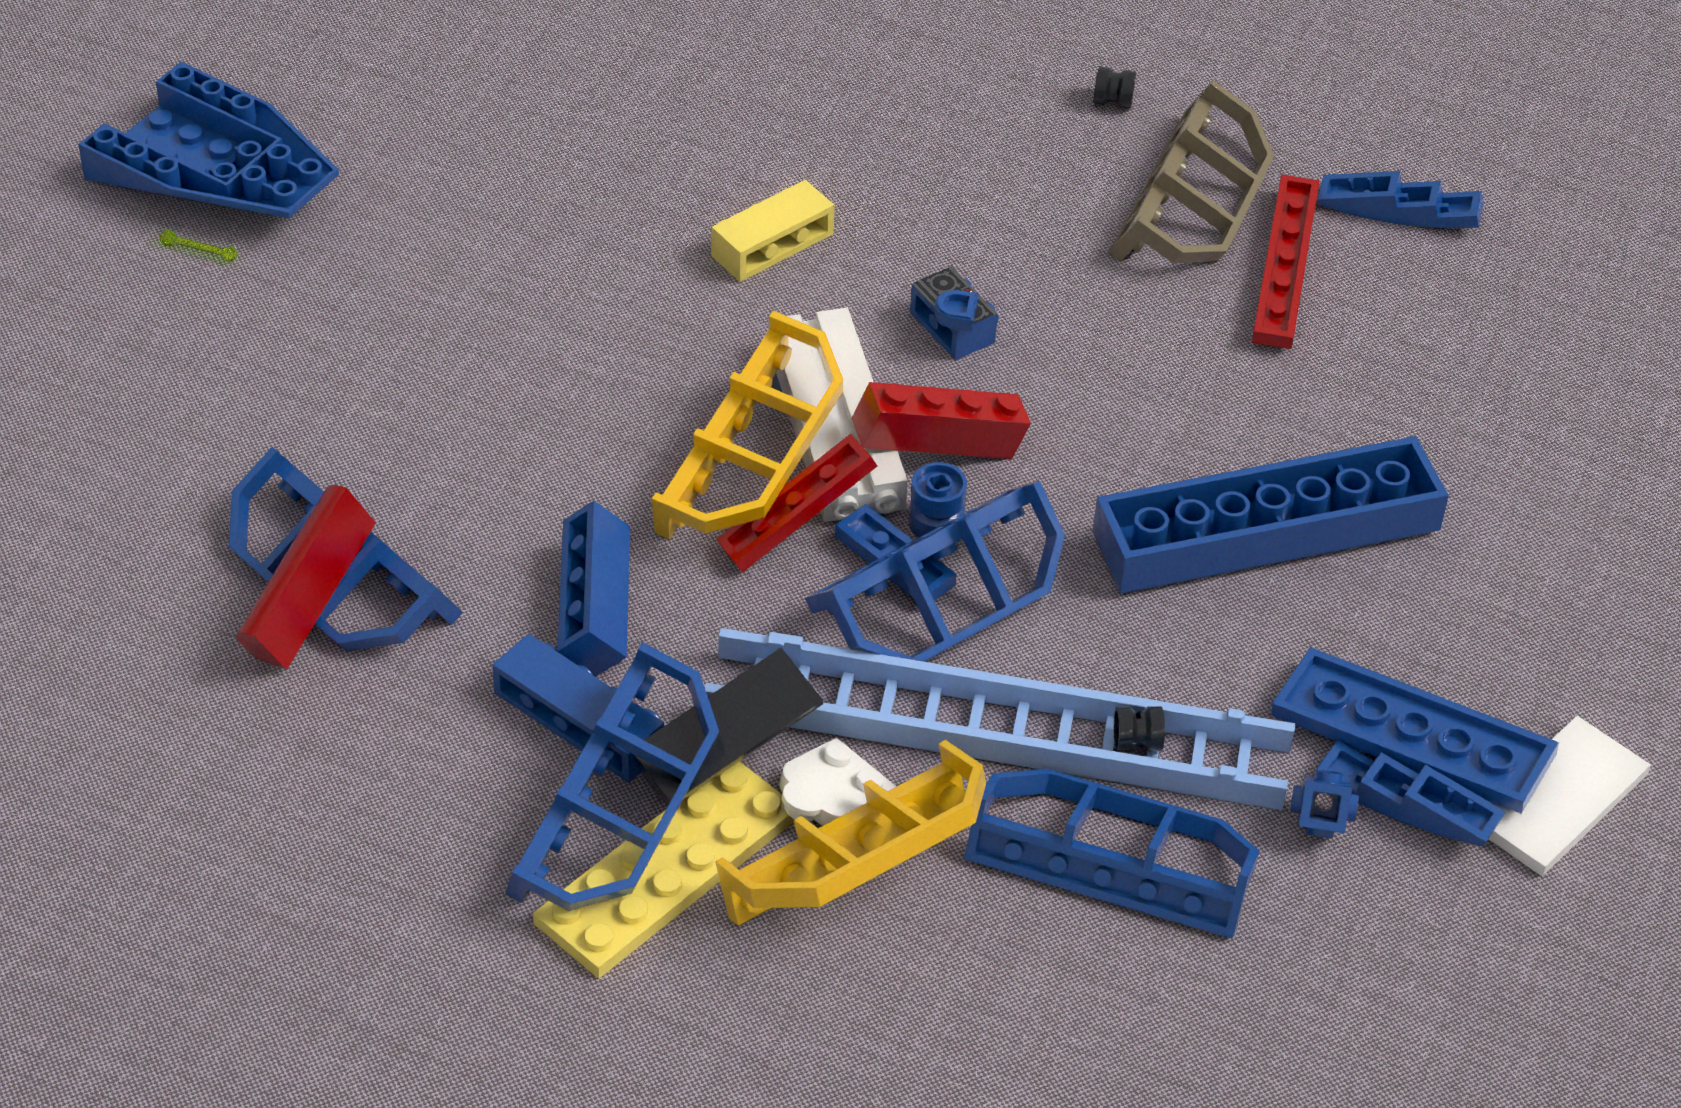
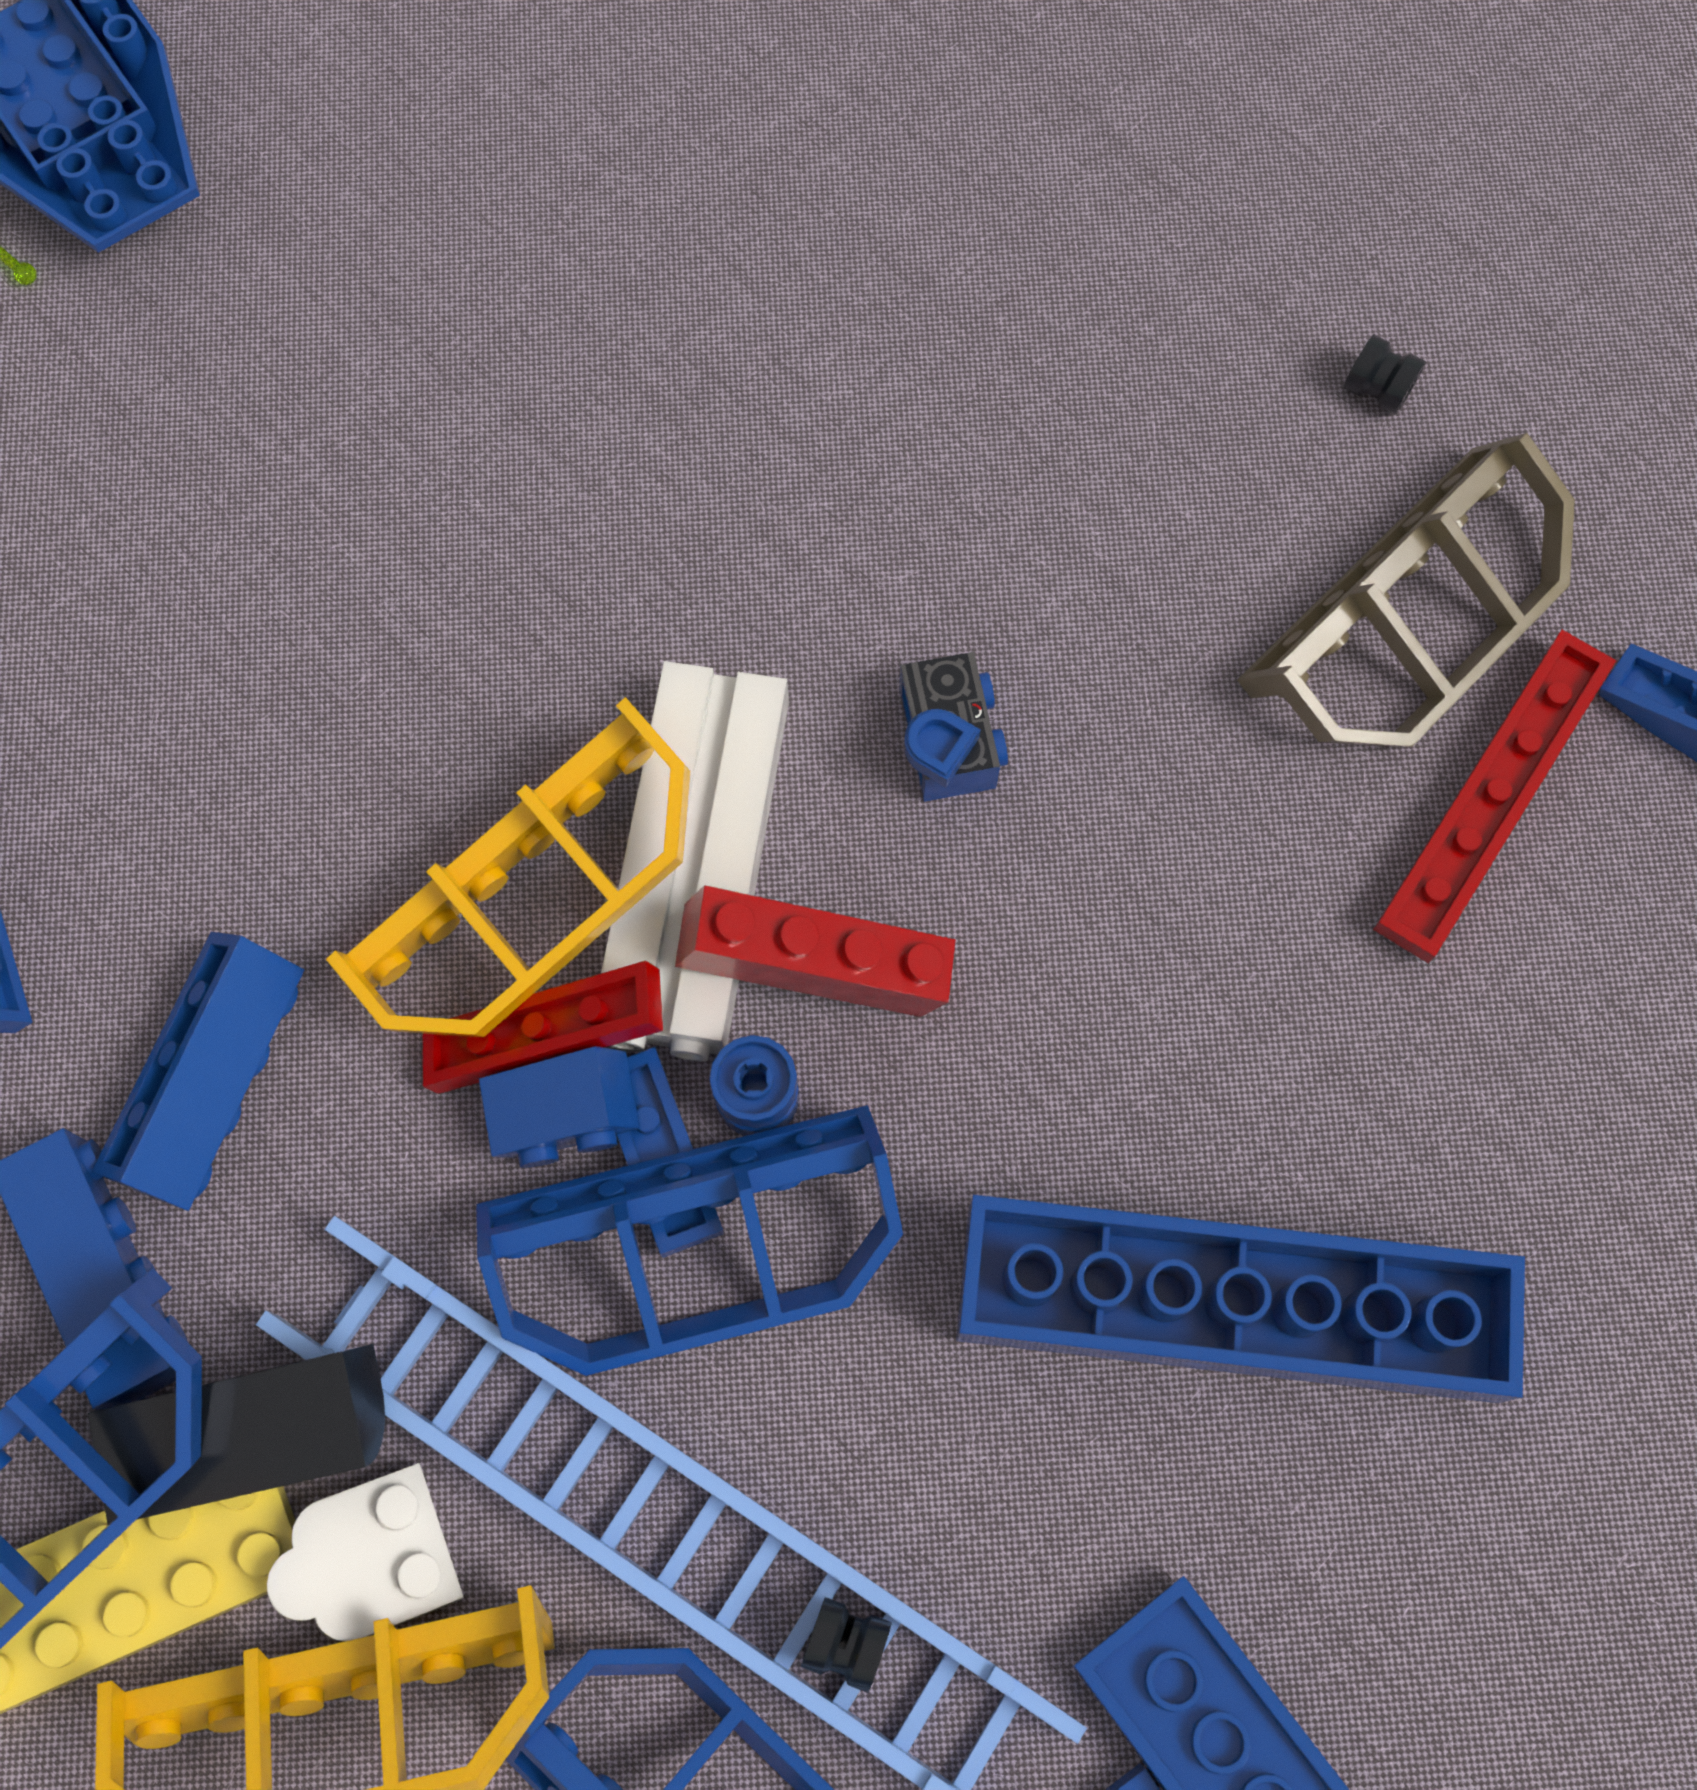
camera: 25 degrees right, 25 degrees up
(772, 230) = (761, 482): light yellow brick -> none
(827, 538) = (559, 1105): none -> blue brick

